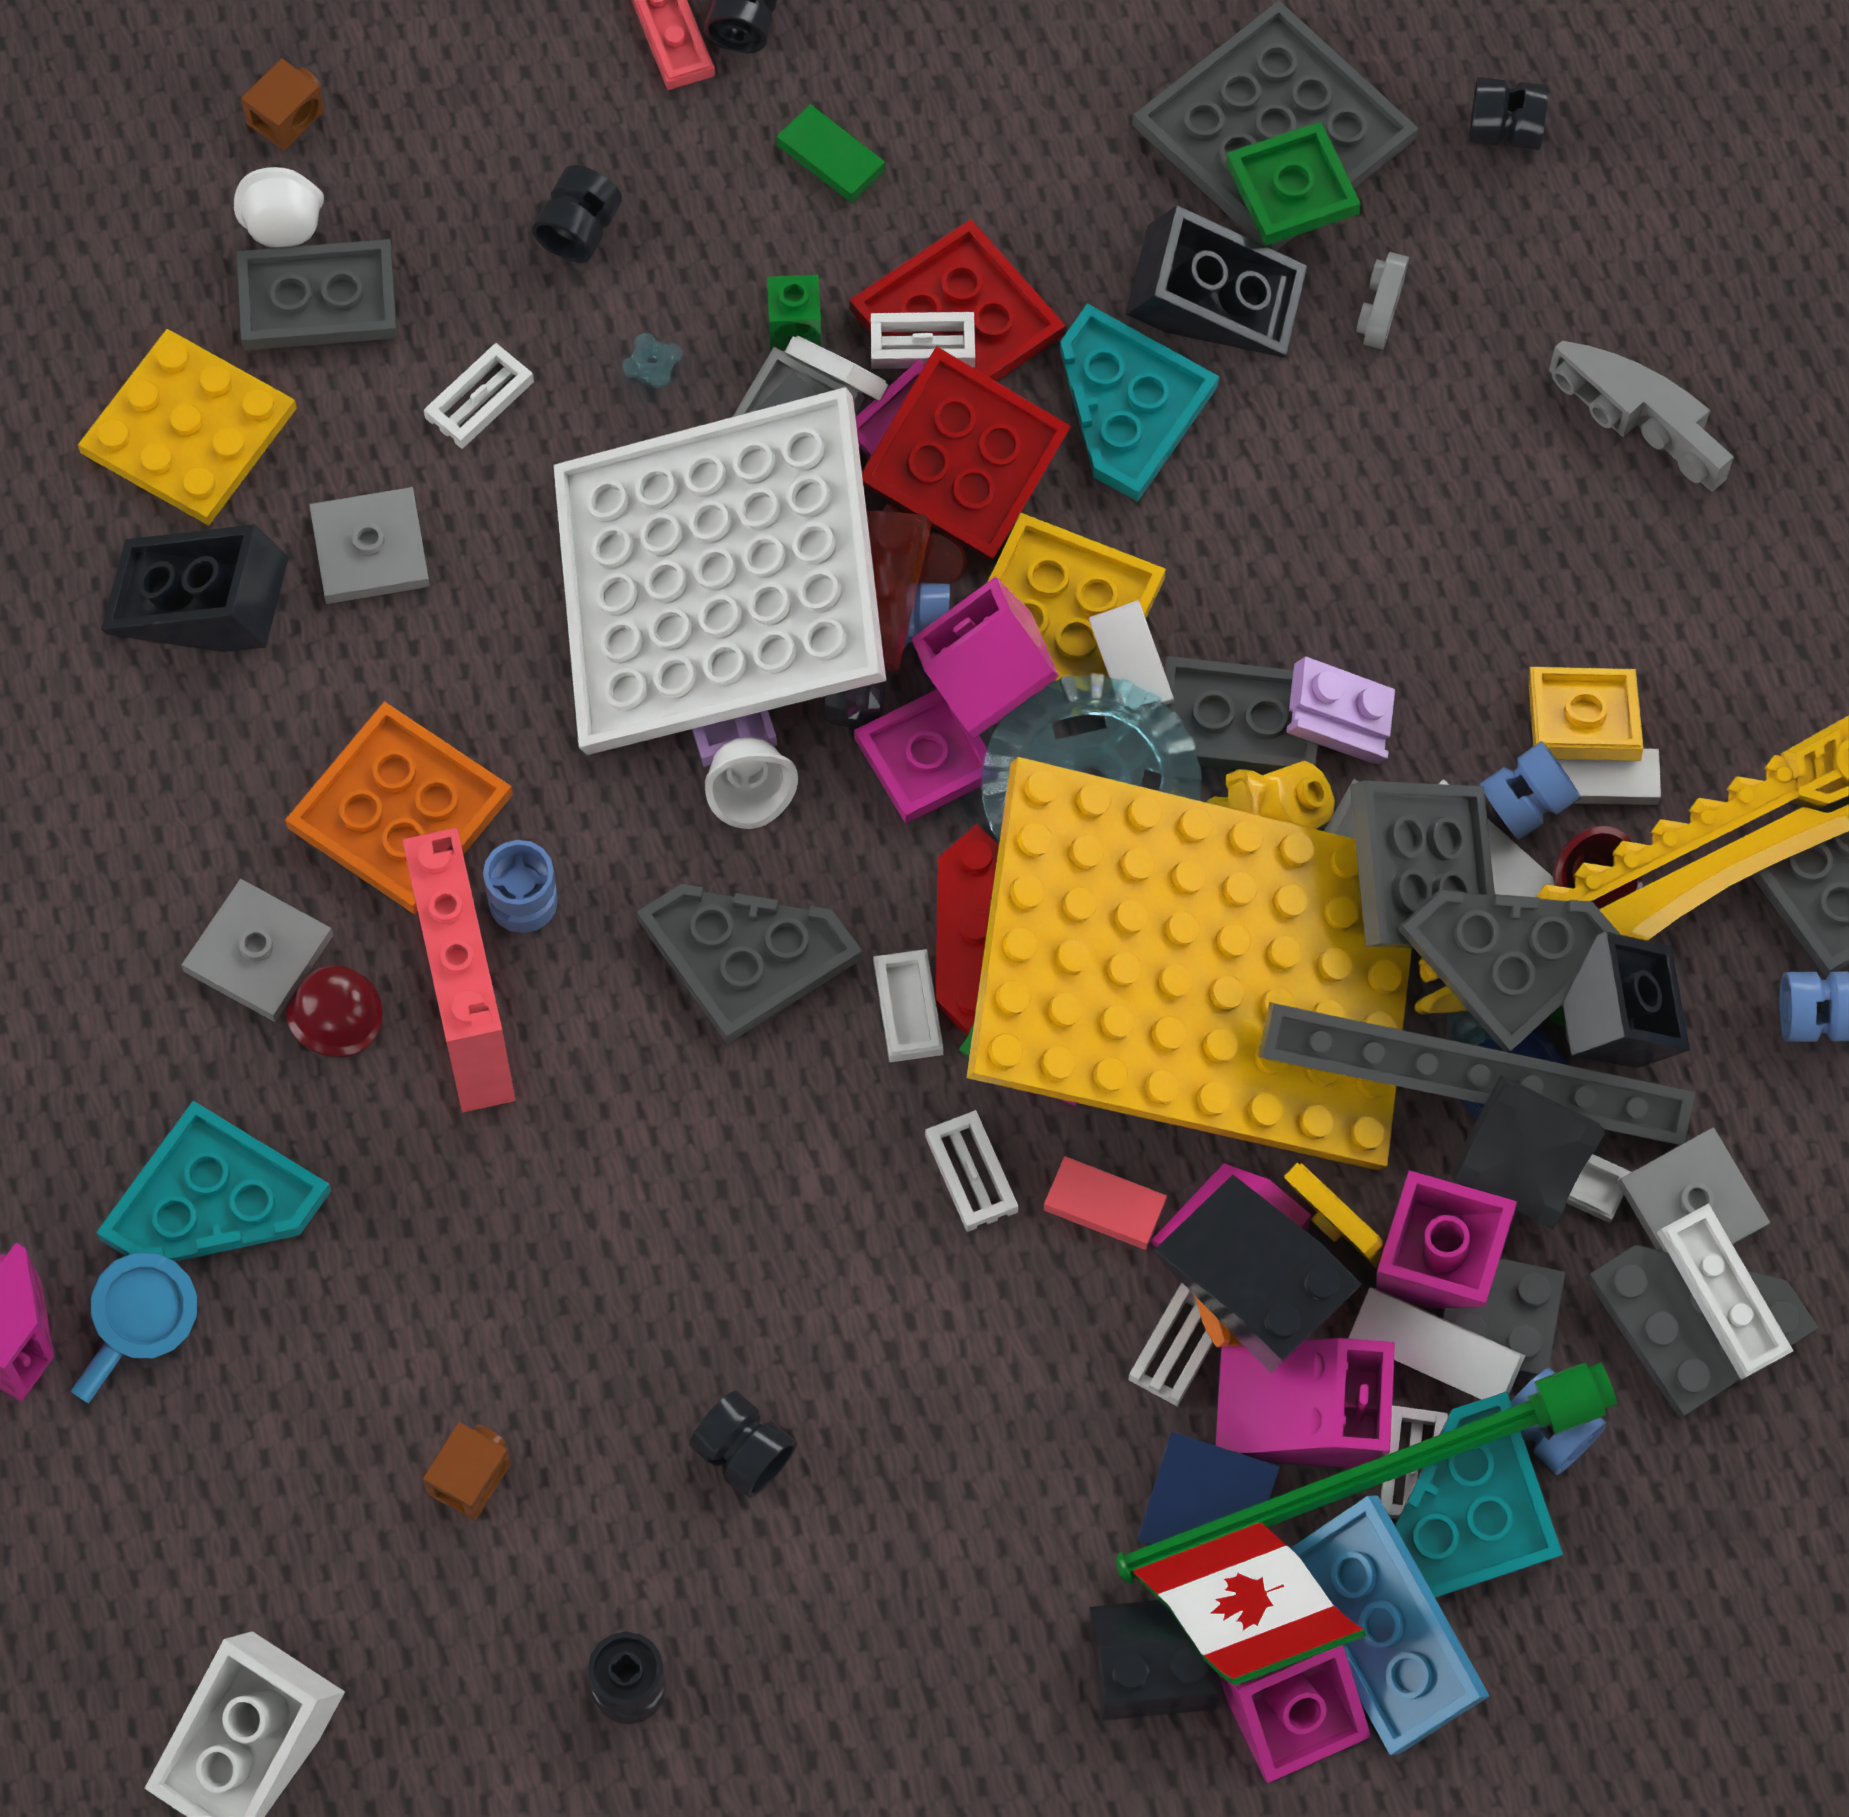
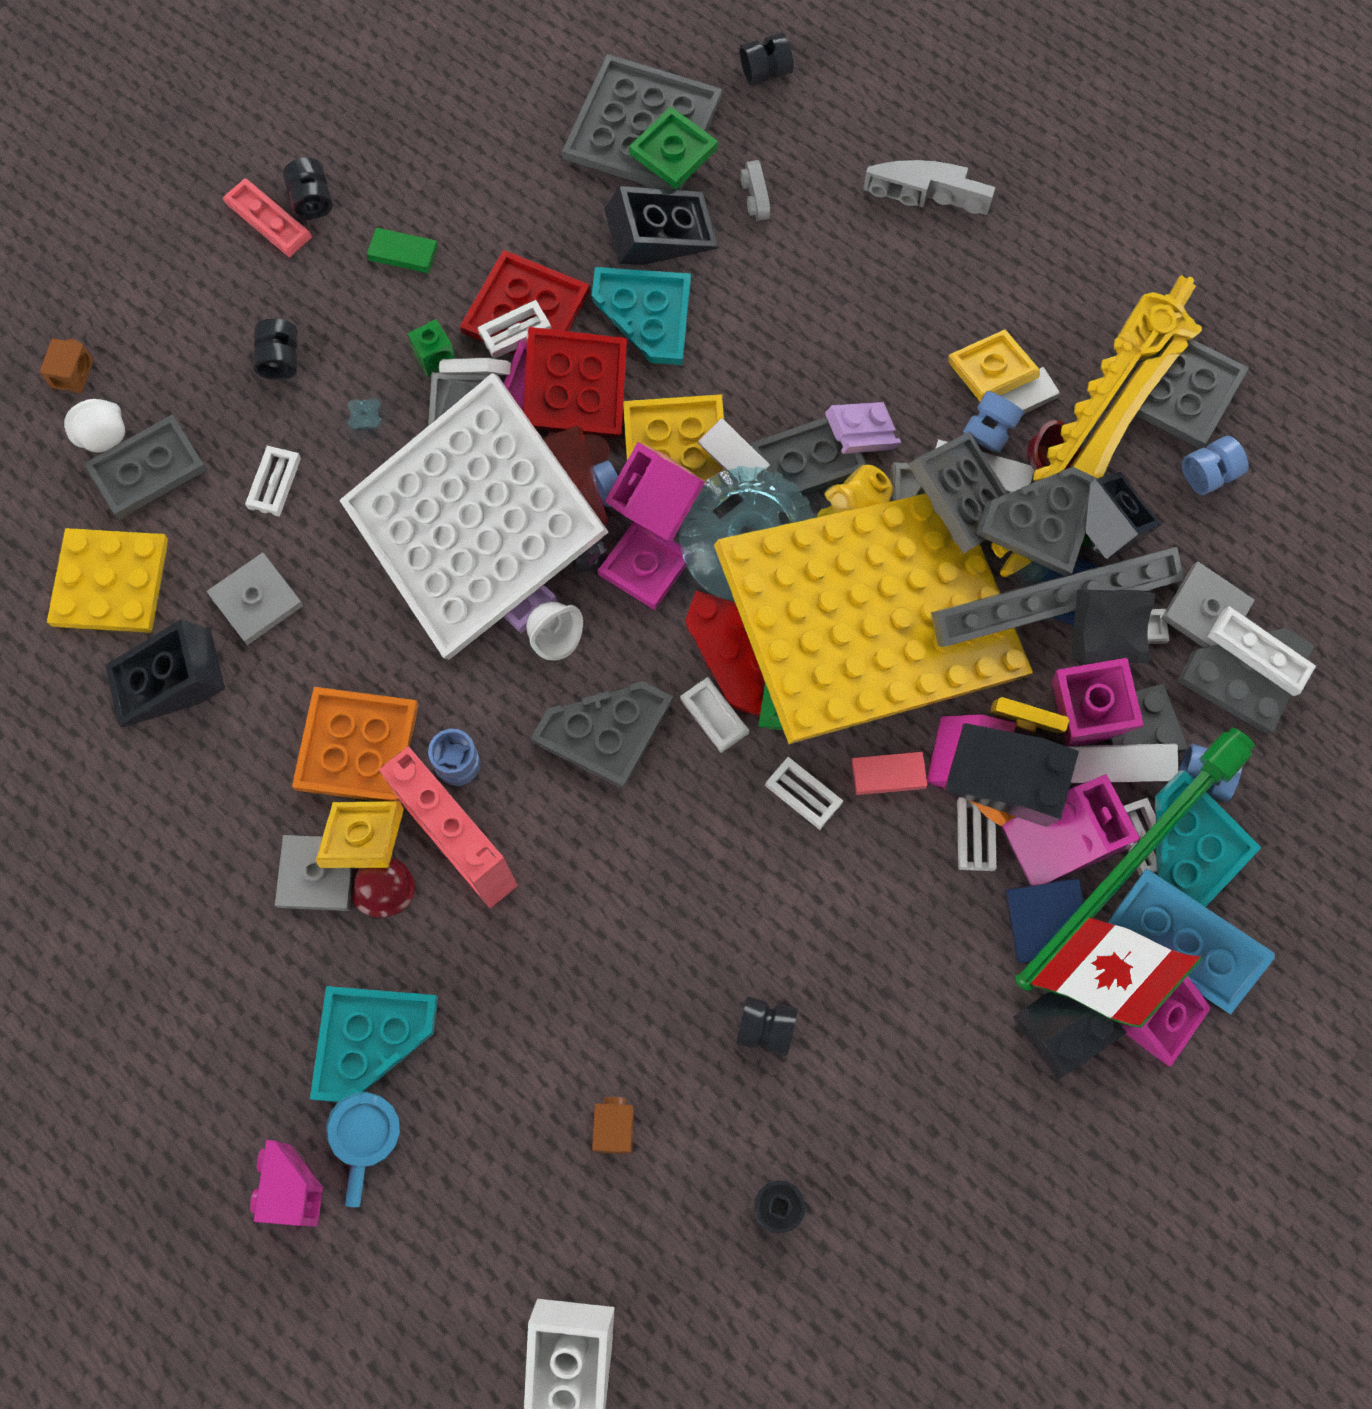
camera: 25 degrees left, 5 degrees up
(341, 926) = (360, 835): none -> yellow plate

